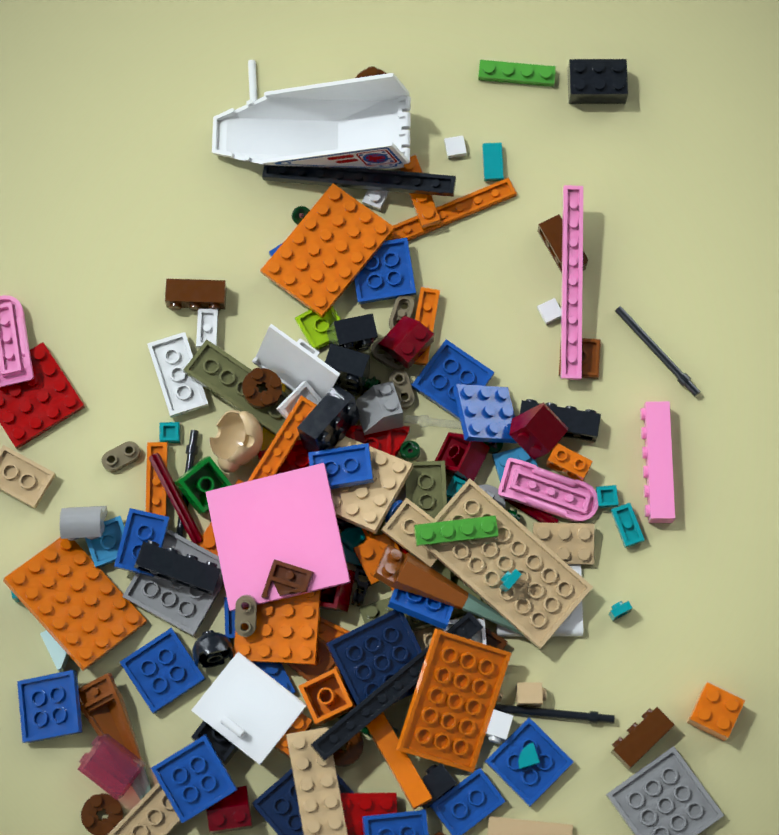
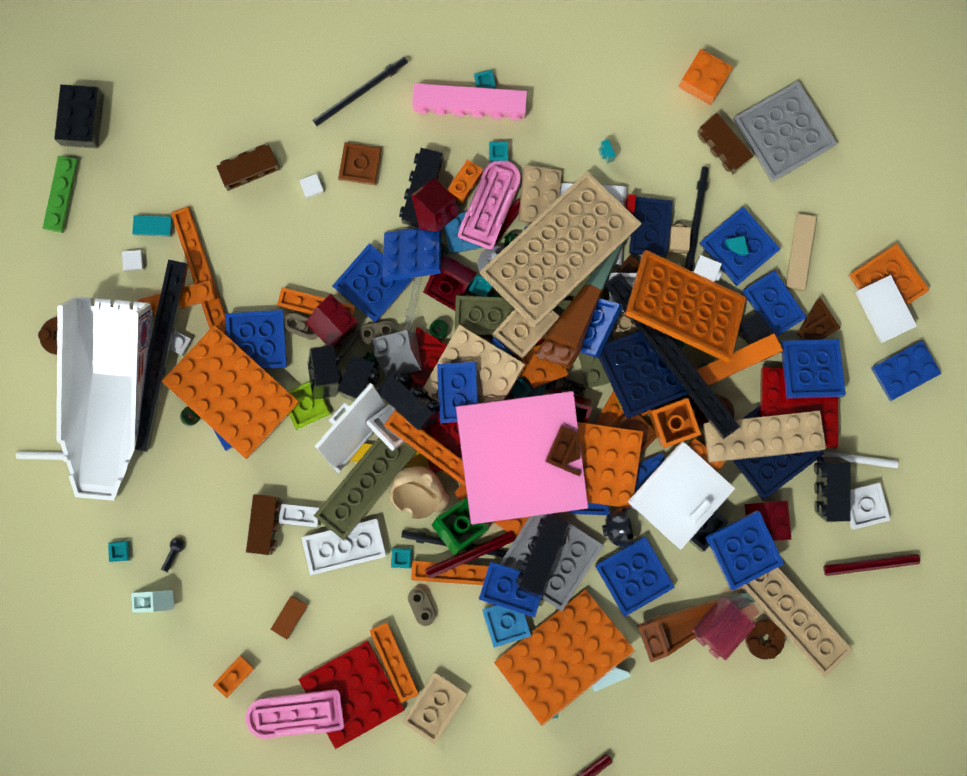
camera: 85 degrees left, 10 degrees up
(43, 280) = (233, 676): none -> orange plate
(49, 706) = (664, 685): blue plate -> none
(63, 433) = (394, 662): none -> orange plate
(82, 522) = (487, 645): light grey brick -> none
(104, 328) = (289, 617): none -> dark orange tile
(114, 198) = (152, 601): none -> light aqua slope
(162, 163) = (119, 551): none -> teal tile
(171, 216) = (176, 545): none -> black bar
(246, 616) = (596, 492): dark tan plate -> none
(258, 377) = (364, 454): reddish brown plate -> none
(456, 530) = (530, 288): bright green plate -> none
(509, 579) = (580, 243): teal plate -> none
(547, 665) = (655, 226): none -> dark blue plate
(561, 639) = (630, 203): none -> red tile
(572, 283) = (287, 159): bright pink plate -> none
(627, 525) = (527, 136): teal plate -> none
(684, 477) = (485, 80): none -> teal tile

